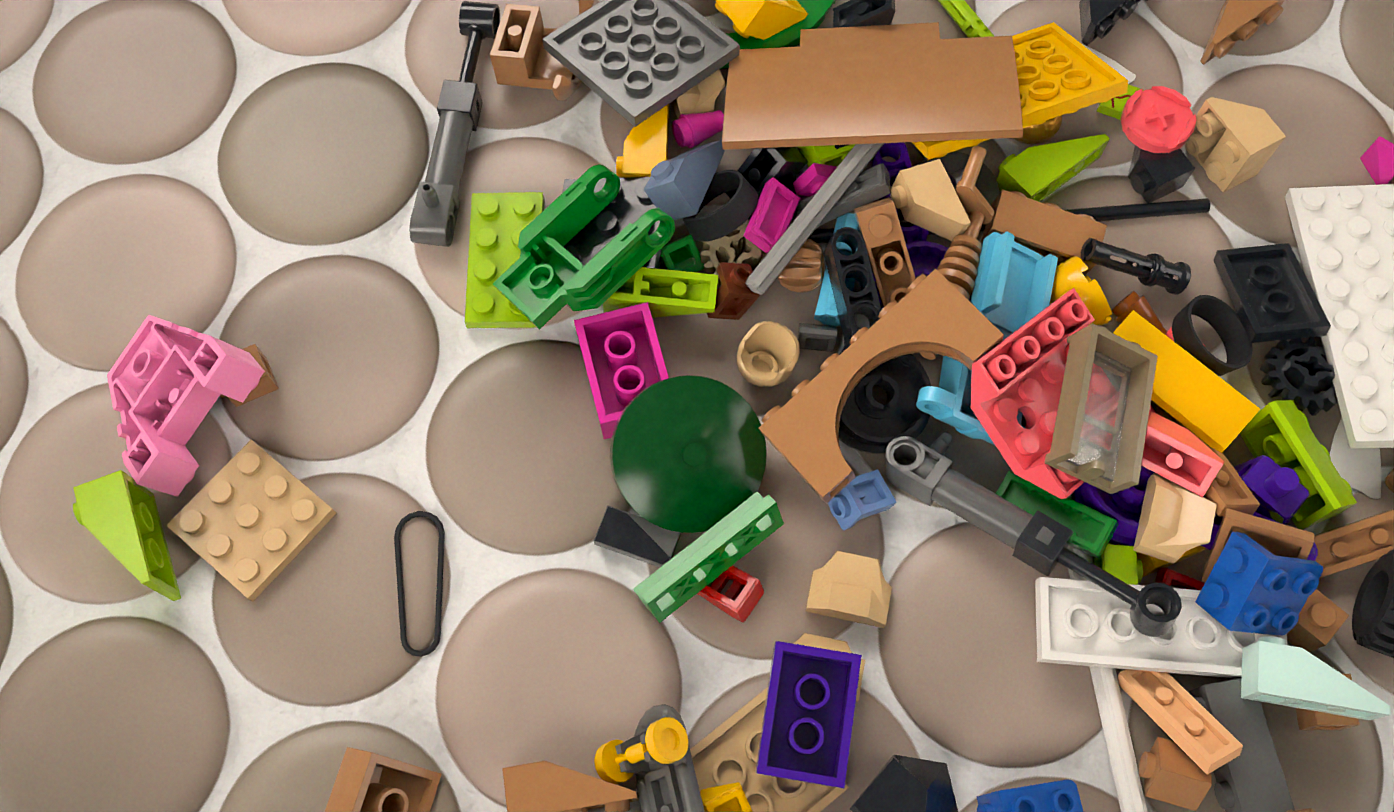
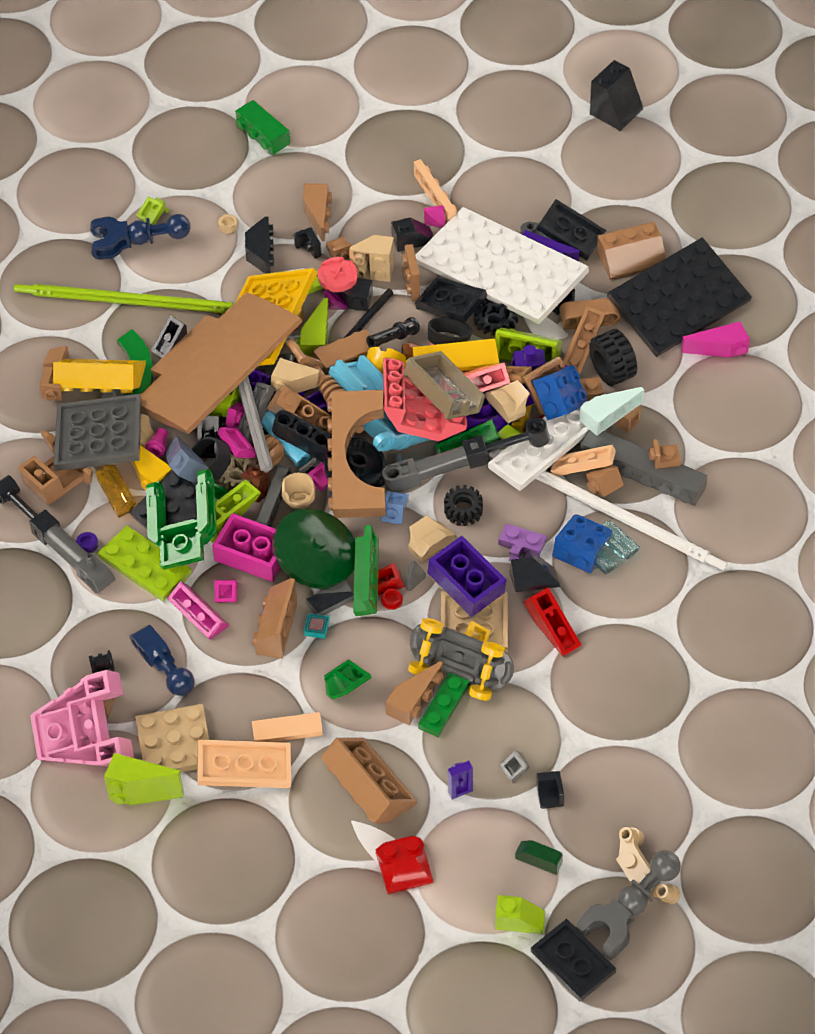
camera: 50 degrees left, 15 degrees down
(262, 647) = (243, 764): none -> light nougat plate
(304, 333) = (101, 662): none -> black bush
(365, 389) = (157, 653): none -> dark blue beam
(378, 653) = (287, 728): none -> light nougat tile
(408, 649) = (272, 684): black piece -> none
(482, 169) = (88, 541): none -> dark purple tile
(484, 382) = (197, 610): none -> dark pink slope
(513, 672) = (345, 679): none -> green slope
(534, 497) = (276, 620): none -> medium nougat slope
(541, 392) = (225, 591): none -> dark pink slope
(577, 555) = (316, 626): none -> teal tile
(583, 138) = (115, 490): none -> clear yellow piece
(703, 623) = (391, 599): none -> red plate
(725, 335) = (273, 497): none -> dark grey beam
(767, 623) = (414, 576): none -> dark grey slope
(814, 356) = (319, 477): none -> dark pink plate
(960, 575) = (463, 515): none -> black tyre
(961, 730) = (521, 541): none -> medium lavender plate
(1119, 151) = (334, 301): none -> magenta slope
(1180, 40) = (308, 239): none -> black bracket
(1206, 85) = (339, 248): none -> medium nougat bracket
(1257, 205) = (411, 273): none -> medium nougat plate
(1323, 154) = (409, 232): none -> black slope

